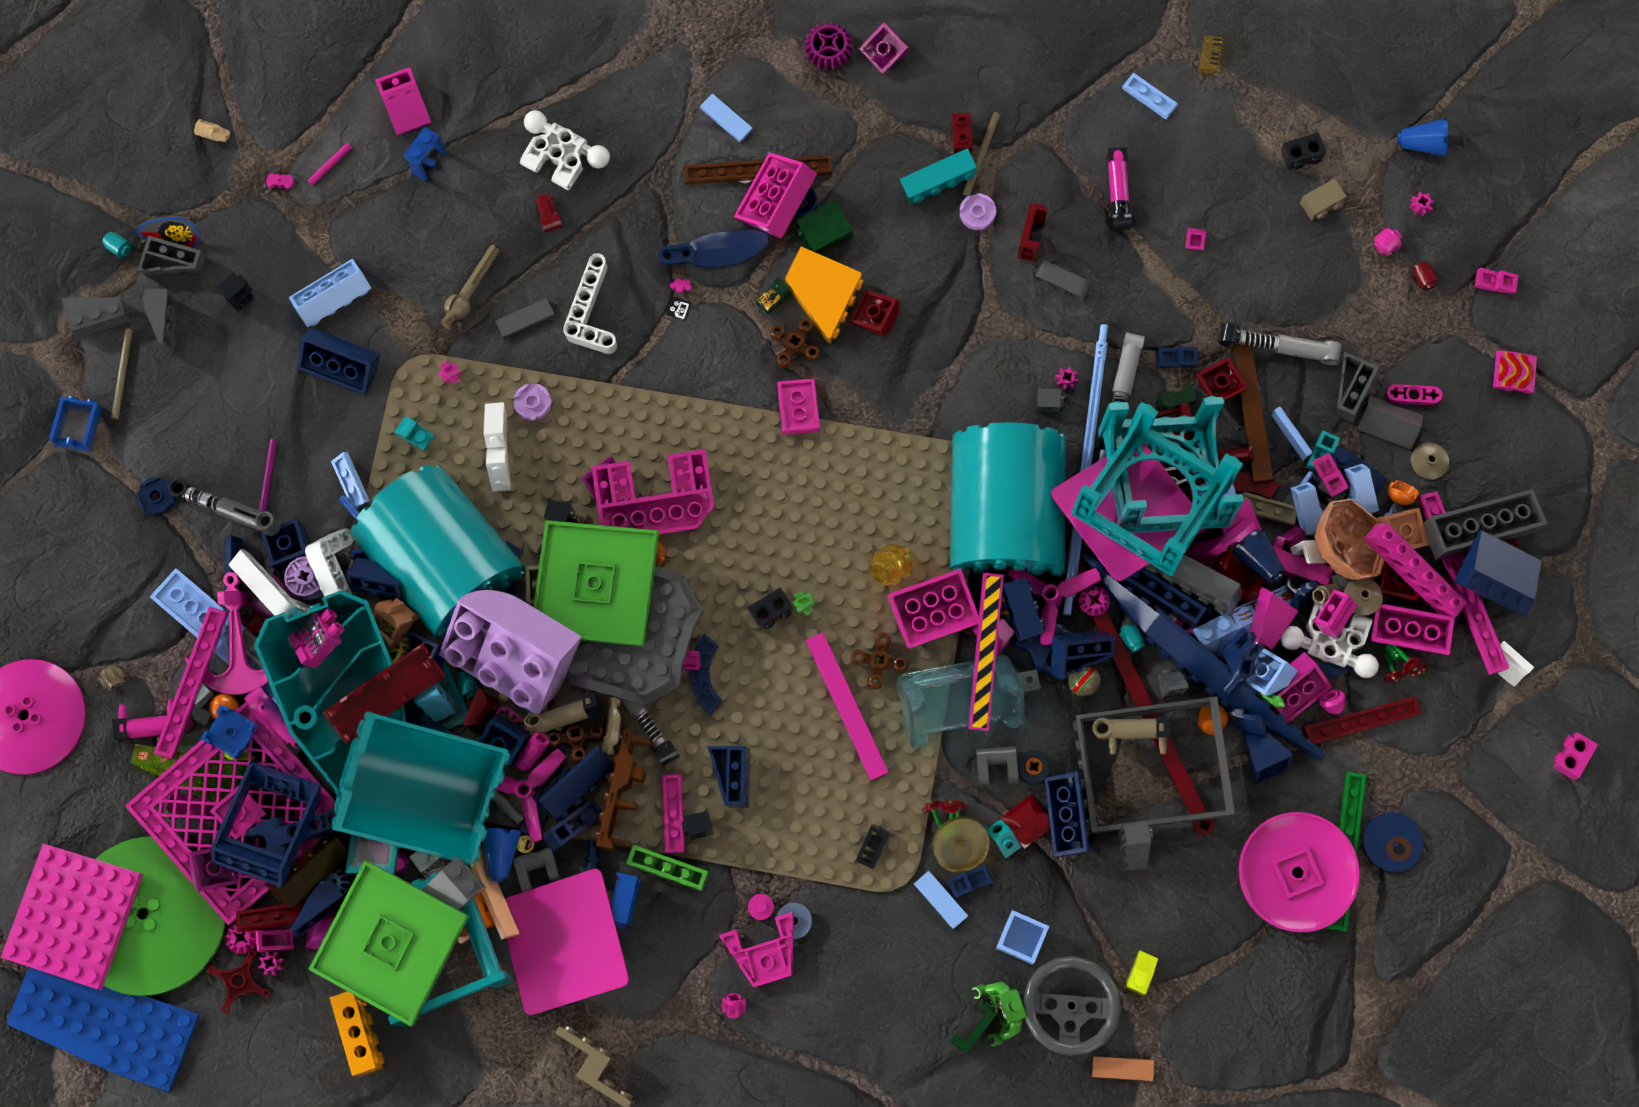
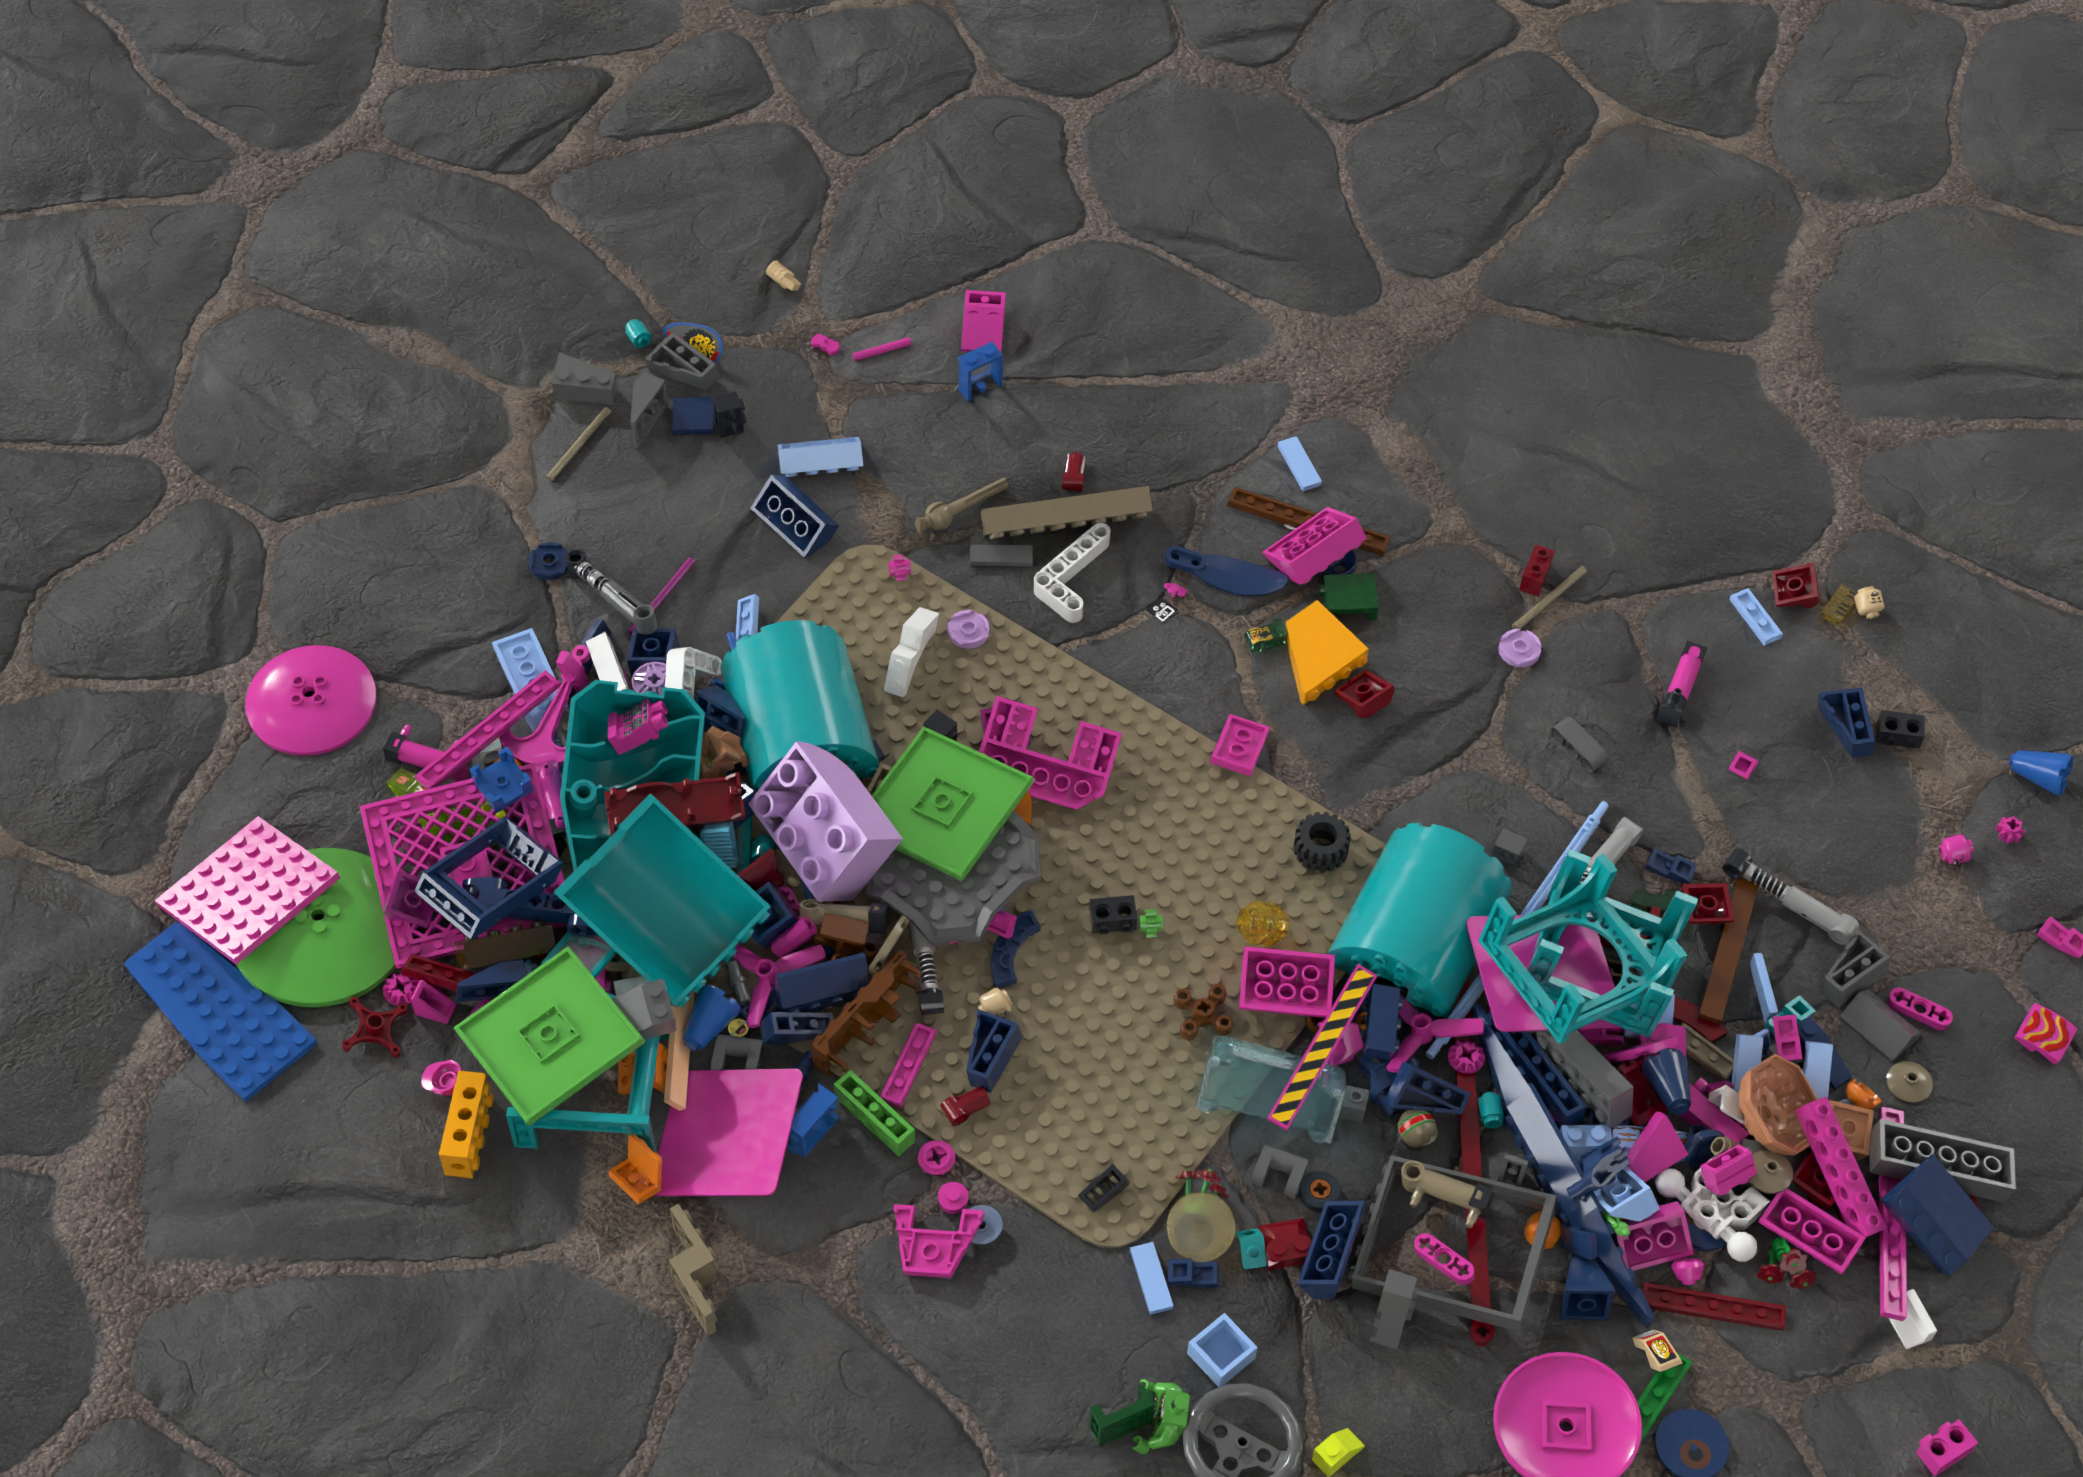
camera: 20 degrees right, 20 degrees down
(75, 423) = (508, 466): blue window -> none
(112, 678) = (413, 697): dark tan gear -> none
(204, 302) = (693, 415): none -> dark blue tile
(275, 960) = (417, 1024): dark pink gear -> none
(315, 1000) = (441, 1077): none -> dark pink hat
(414, 433) = (833, 605): teal brick -> none
(511, 1007) = (639, 1173): none -> orange bracket
(535, 158) = (1117, 422): white connector -> none
(561, 257) = (1066, 511): none -> dark tan brick
(571, 733) = (843, 930): none -> reddish brown panel
(697, 825) = (927, 1081): black brick -> none
(716, 731) = (996, 1002): none -> tan head
(731, 832) = (960, 1108): none -> dark red piece
(732, 870) = (940, 1149): none -> dark pink gear
(733, 1005) = (872, 1279): dark pink gear -> none
(797, 336) = (1266, 686): reddish brown gear -> none
(828, 55) = (1439, 435): magenta gear -> none
(847, 706) = (1146, 1043): dark pink tile -> none
(884, 48) = (1494, 464): magenta slope -> none
(898, 453) = (1317, 856): none -> black tyre
(939, 176) = (1494, 597): teal brick -> none
(1028, 249) = (1575, 670): dark red panel -> none
(1065, 384) = (1539, 835): dark pink gear -> none
(1139, 789) = (1439, 1249): none -> dark pink beam
(1171, 55) = (1796, 586): none -> dark red slope
(1233, 43) = (1869, 602): none -> tan head
(1242, 454) = (1692, 983): dark red slope -> none
(1262, 162) = (1849, 719): none -> dark blue wedge
(1323, 199) = (1901, 782): dark tan brick -> none
(1339, 780) = (1658, 1350): none -> slope
(1425, 275) = (1984, 898): dark red brick -> none

